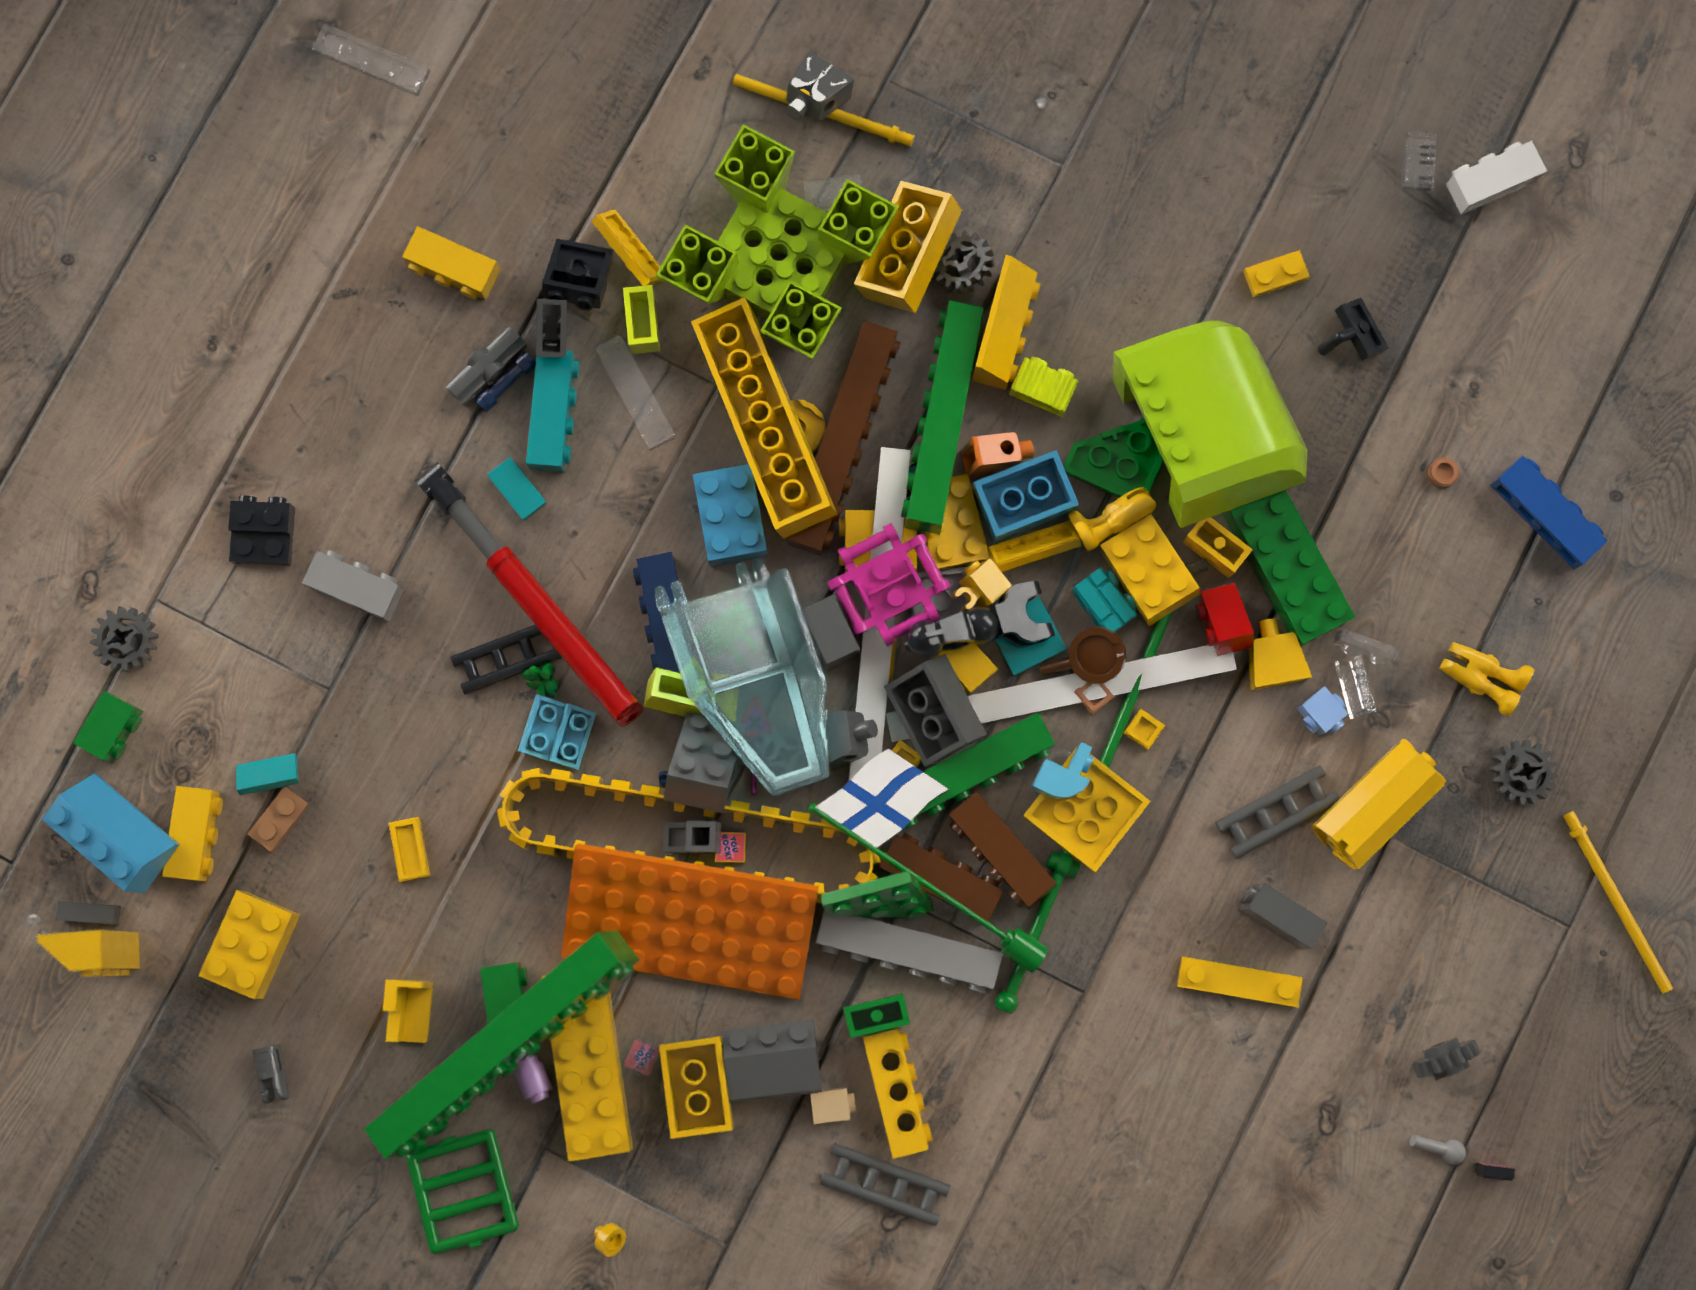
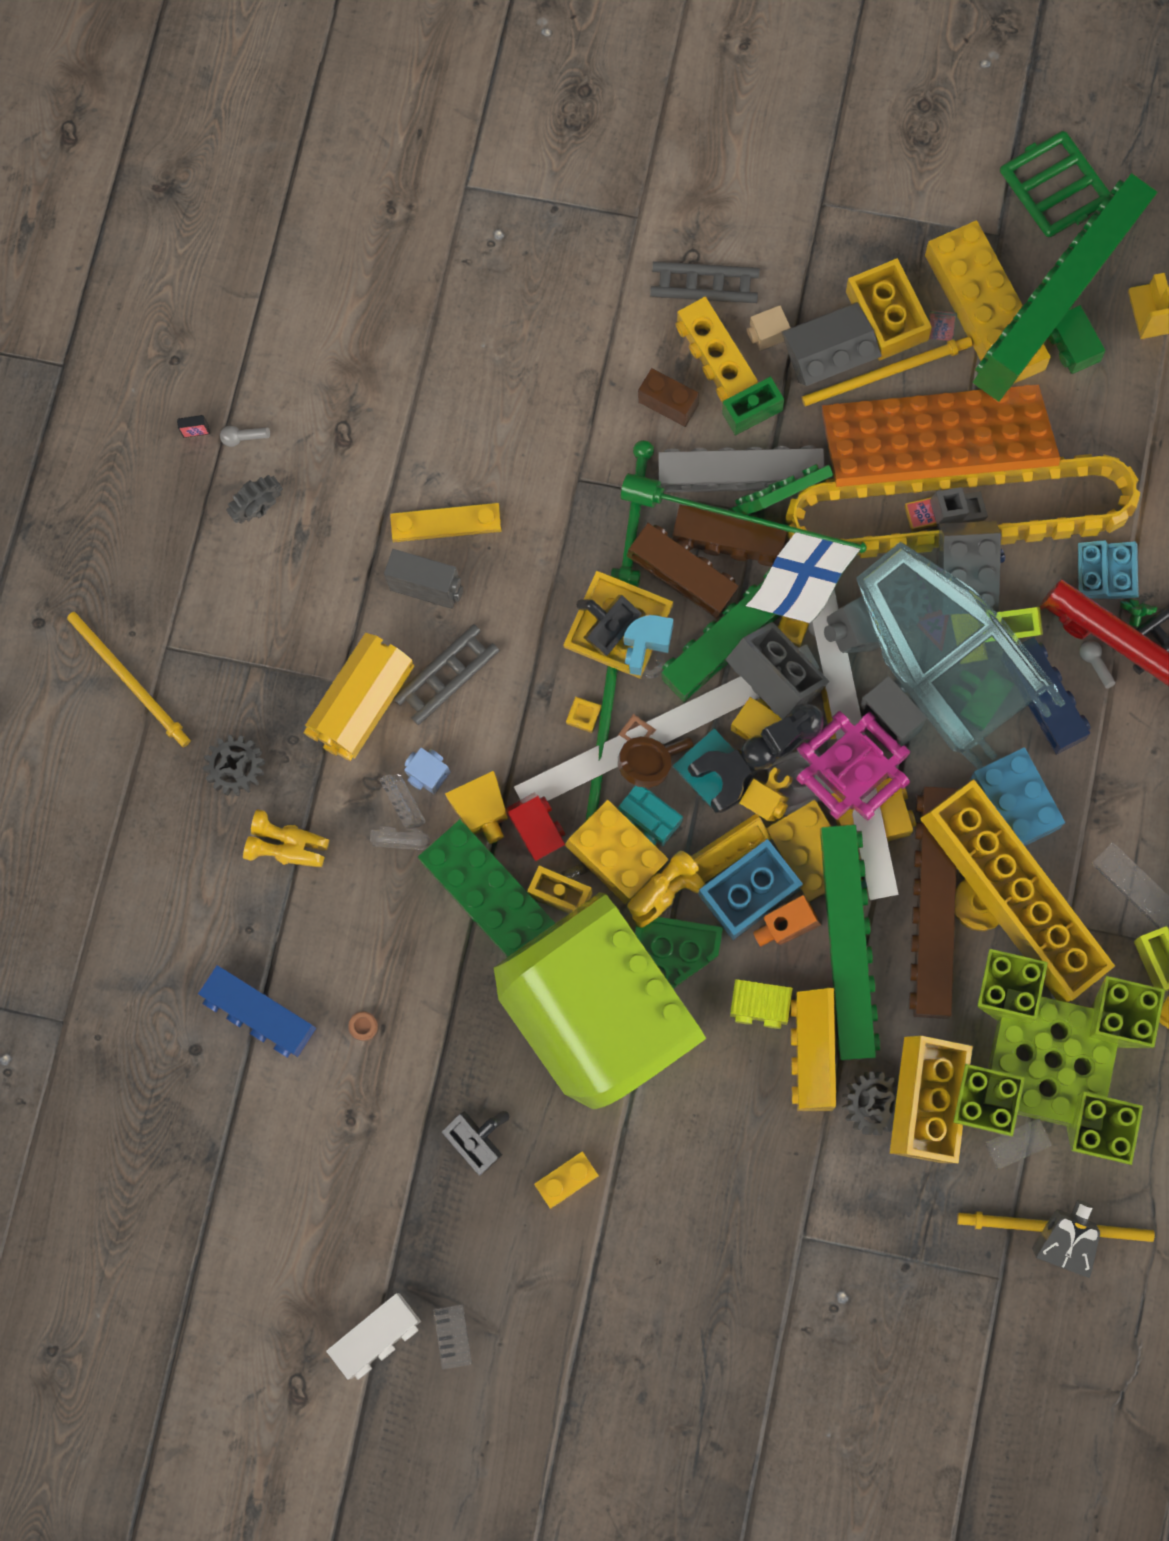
camera: 175 degrees right, 5 degrees down
(533, 1080) = (1025, 278): lavender brick -> none
(602, 645) = (1091, 652): none -> light grey bar
(609, 1239) = (921, 178): yellow tile -> none
(639, 1027) = (952, 347): none -> yellow bar
(964, 1054) = (668, 397): none -> reddish brown brick
(1097, 804) = (610, 624): none -> black plate

